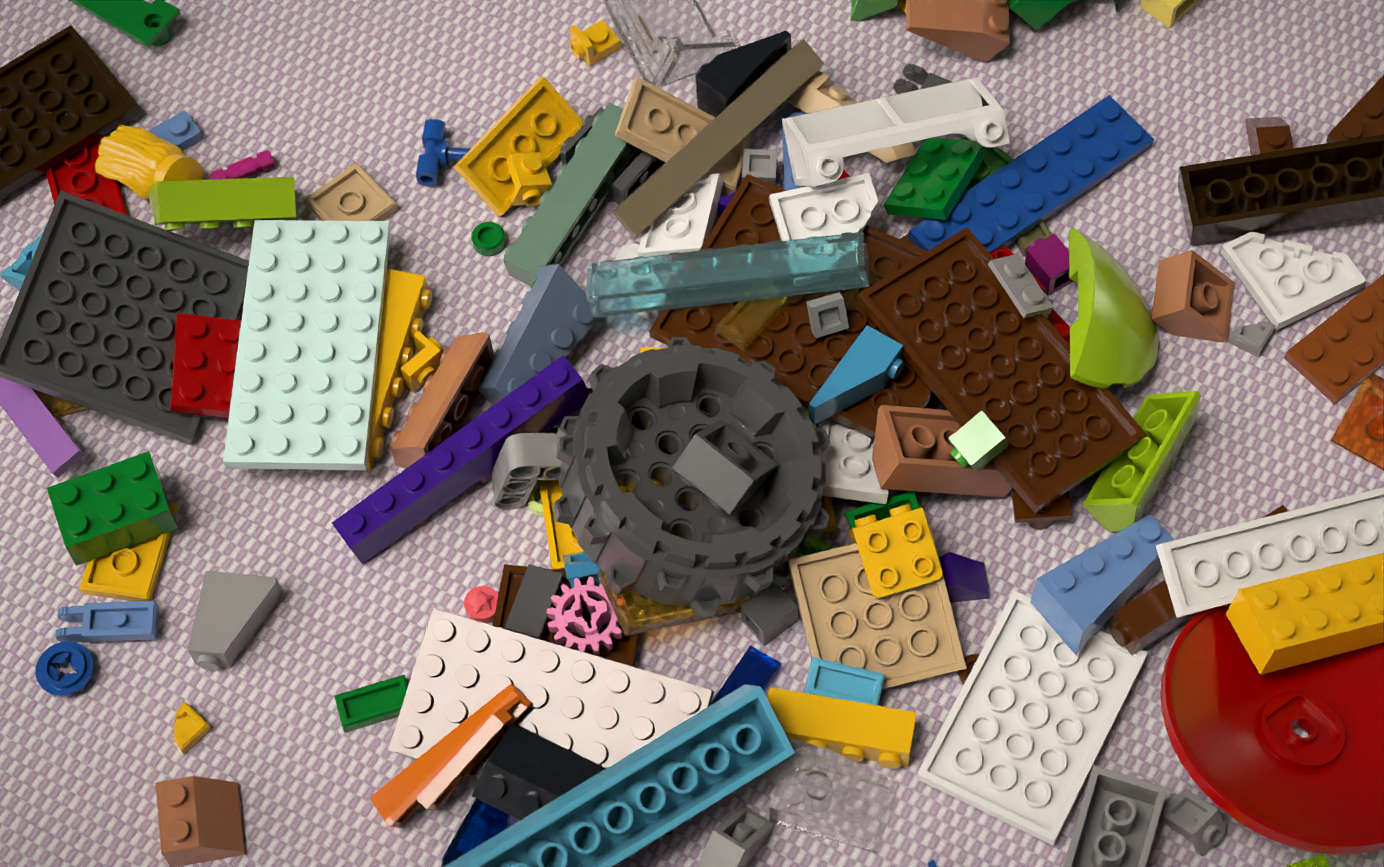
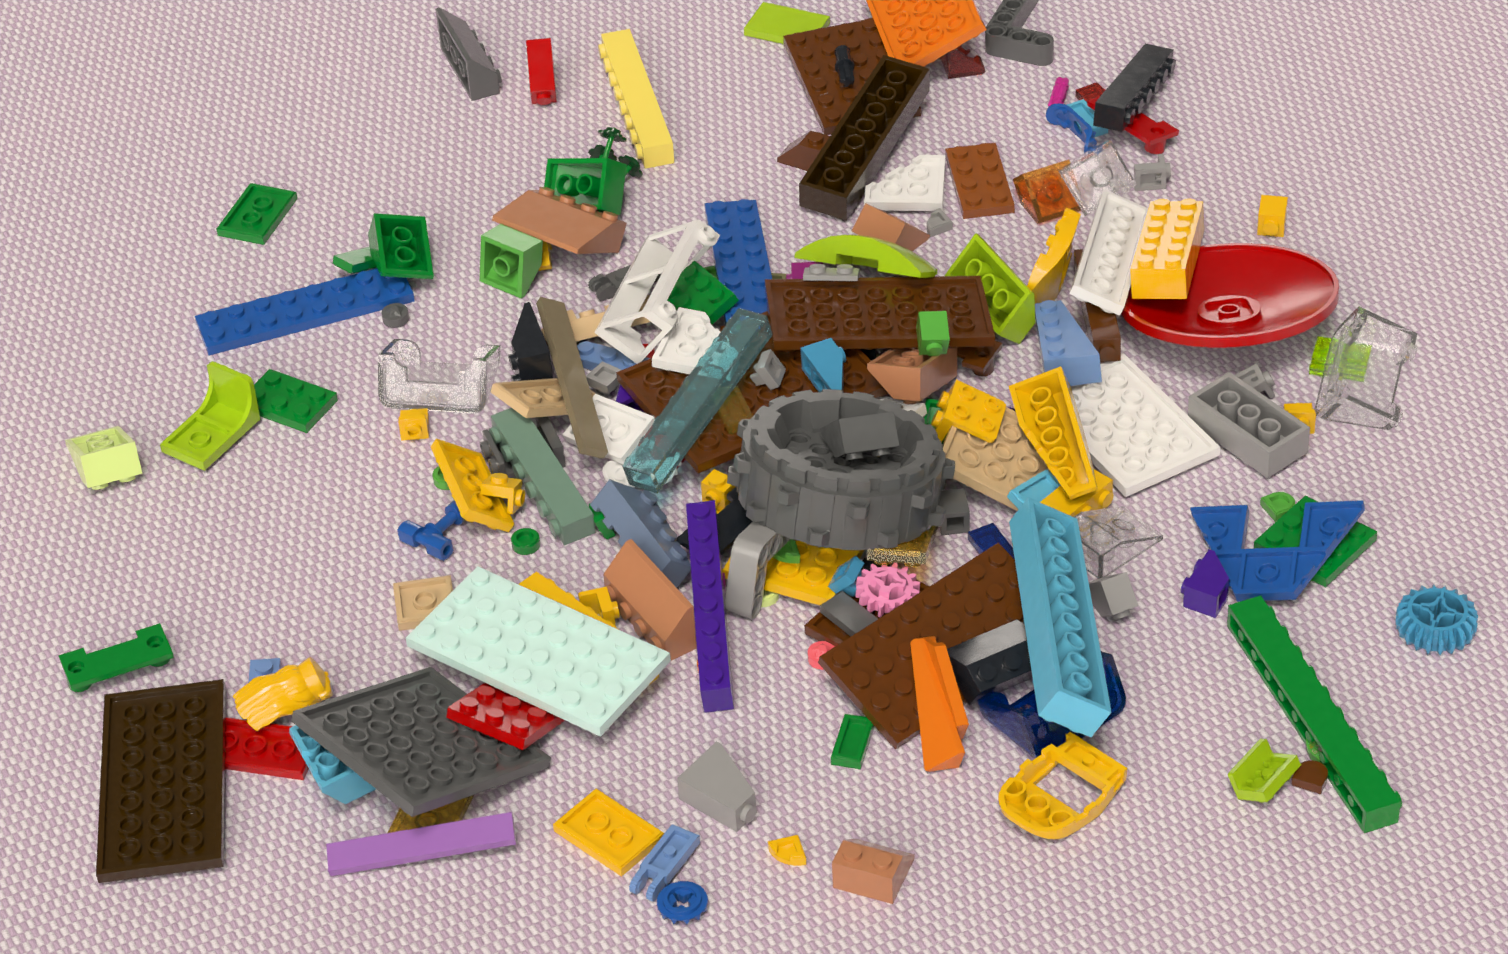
camera: 60 degrees left, 20 degrees down
(112, 508) = (577, 812): green brick -> none
(222, 201) = (371, 649): lime slope -> none
(246, 167) = (336, 649): dark pink axle -> none
(942, 653) = (1055, 430): none -> yellow wedge
(1225, 501) = (1051, 268): none -> yellow slope

